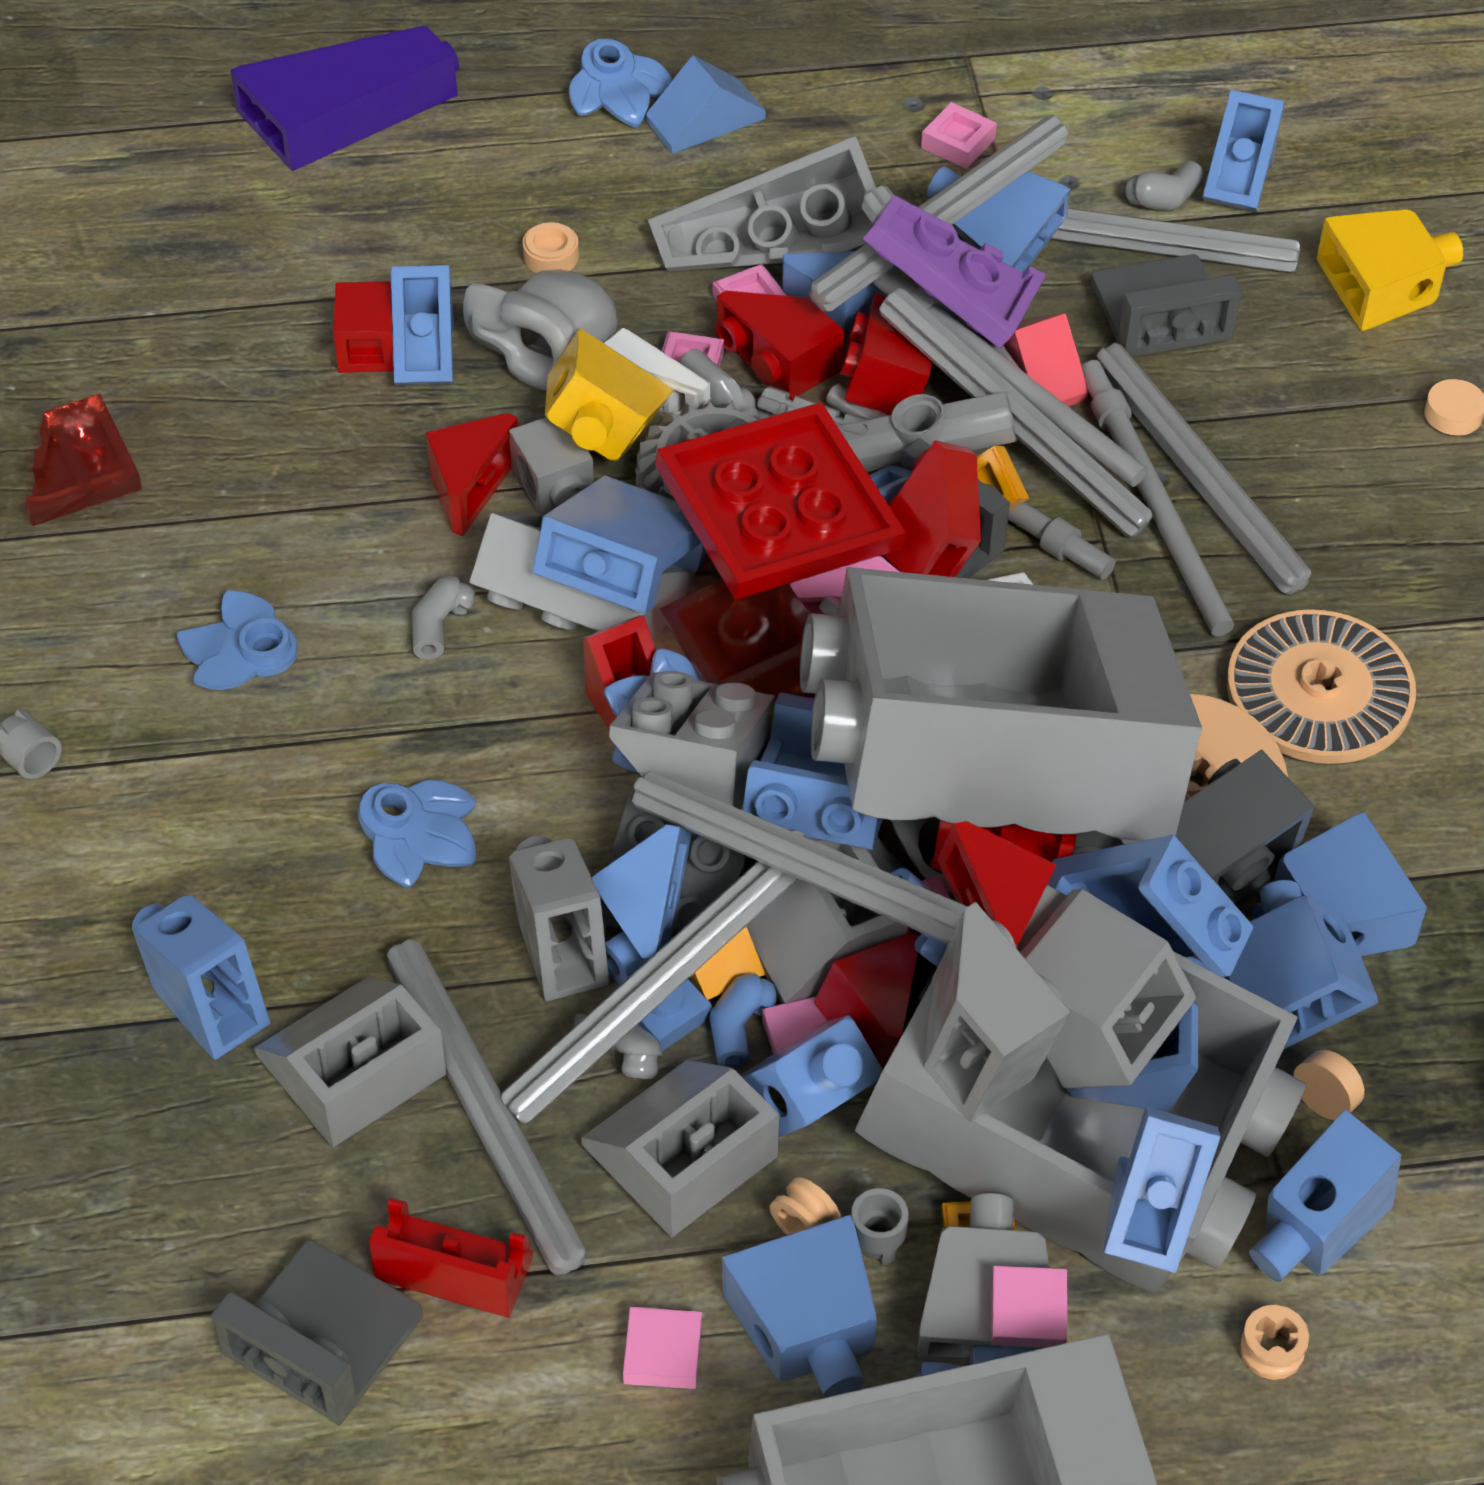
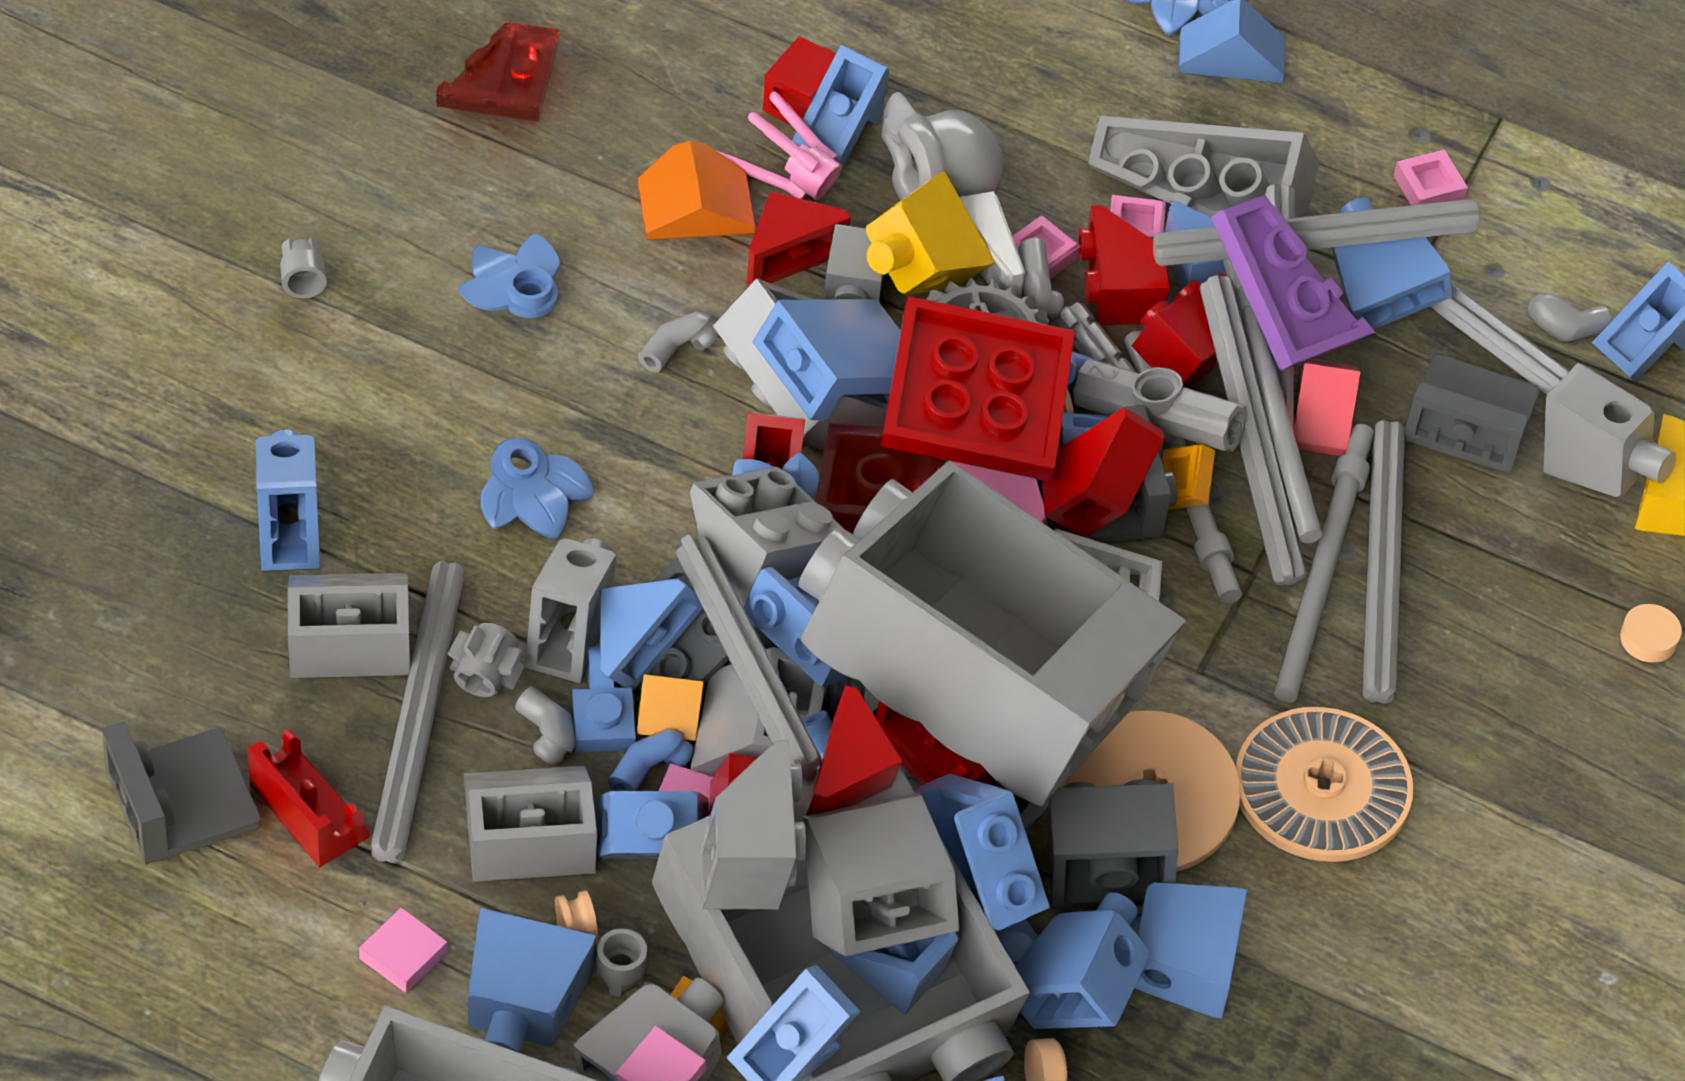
camera: 30 degrees right, 0 degrees up
(342, 478) = (694, 195): none -> orange slope
(435, 395) = (811, 169): none -> bright pink plant
(516, 1014) = (486, 659): none -> light grey gear
(550, 247) = (1008, 99): light nougat tile -> none
(645, 990) = (587, 694): light grey axle -> none
(1299, 261) = (1601, 435): none -> light grey torso

